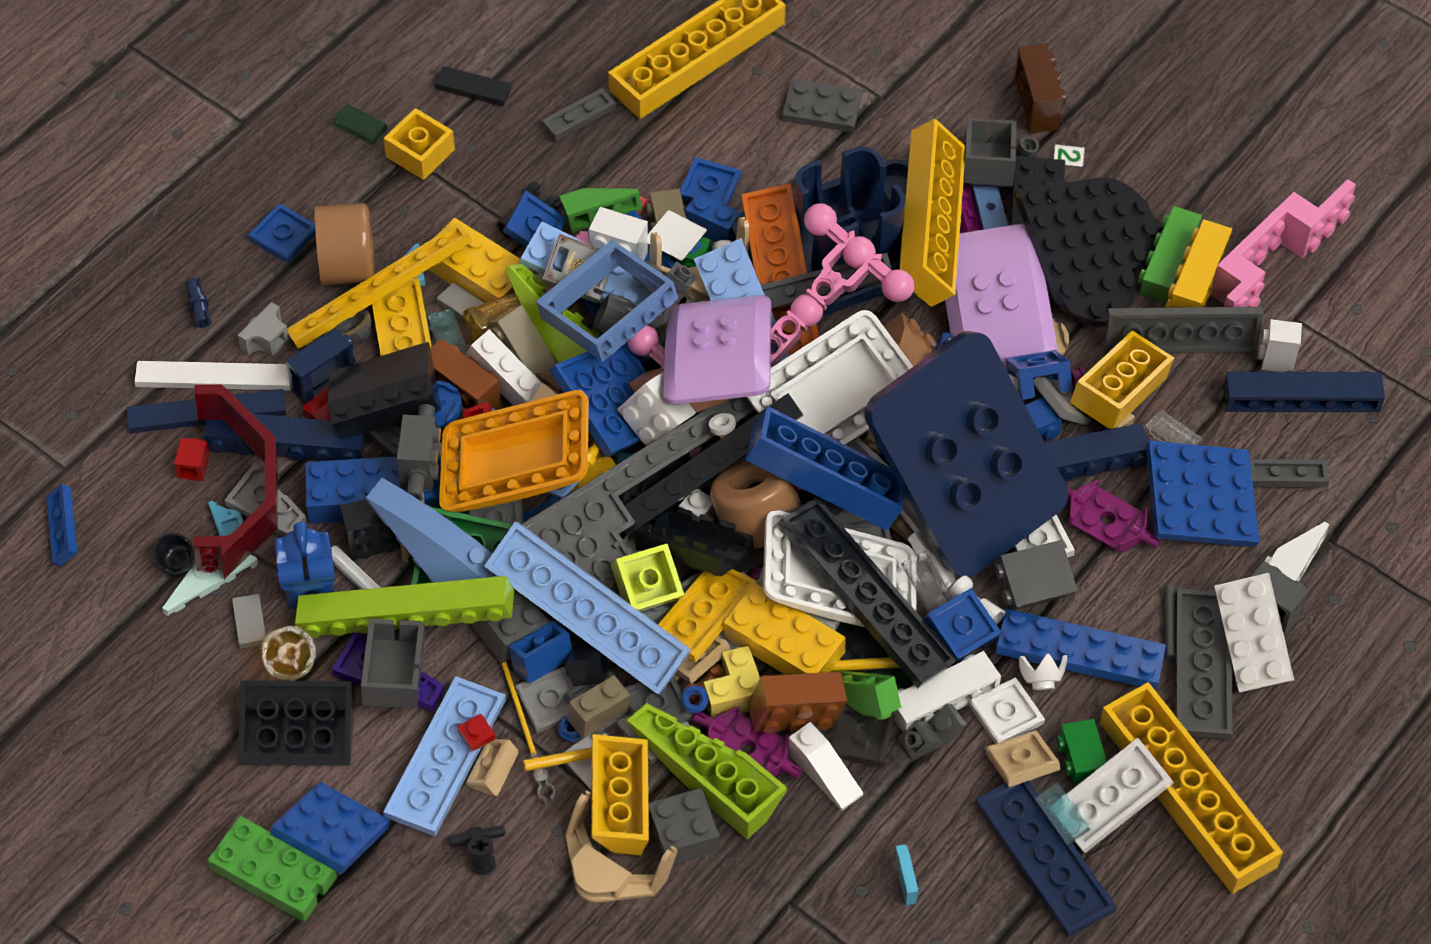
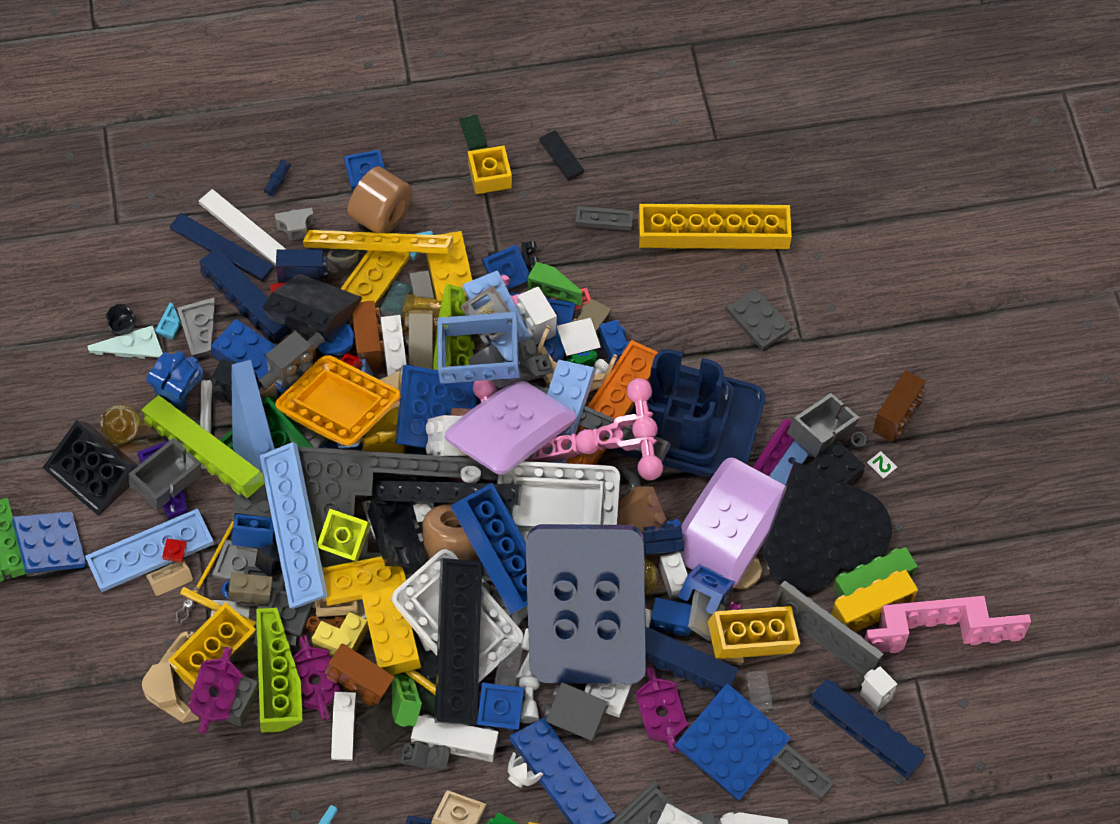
camera: 40 degrees right, 5 degrees up
(61, 525) = (82, 257): blue plate -> none
(192, 459) = (184, 270): red brick -> none
(229, 551) = (187, 332): dark red panel -> none
(249, 620) = (126, 388): light grey tile -> none
(479, 847) = (113, 616): black piece -> none
(667, 806) = (222, 676): none -> magenta plate
(694, 690) = (301, 627): blue plate -> none
(710, 180) = (637, 319): blue plate -> none
(933, 211) = (734, 437): yellow brick -> none
(1006, 711) = (482, 779): white tile -> none

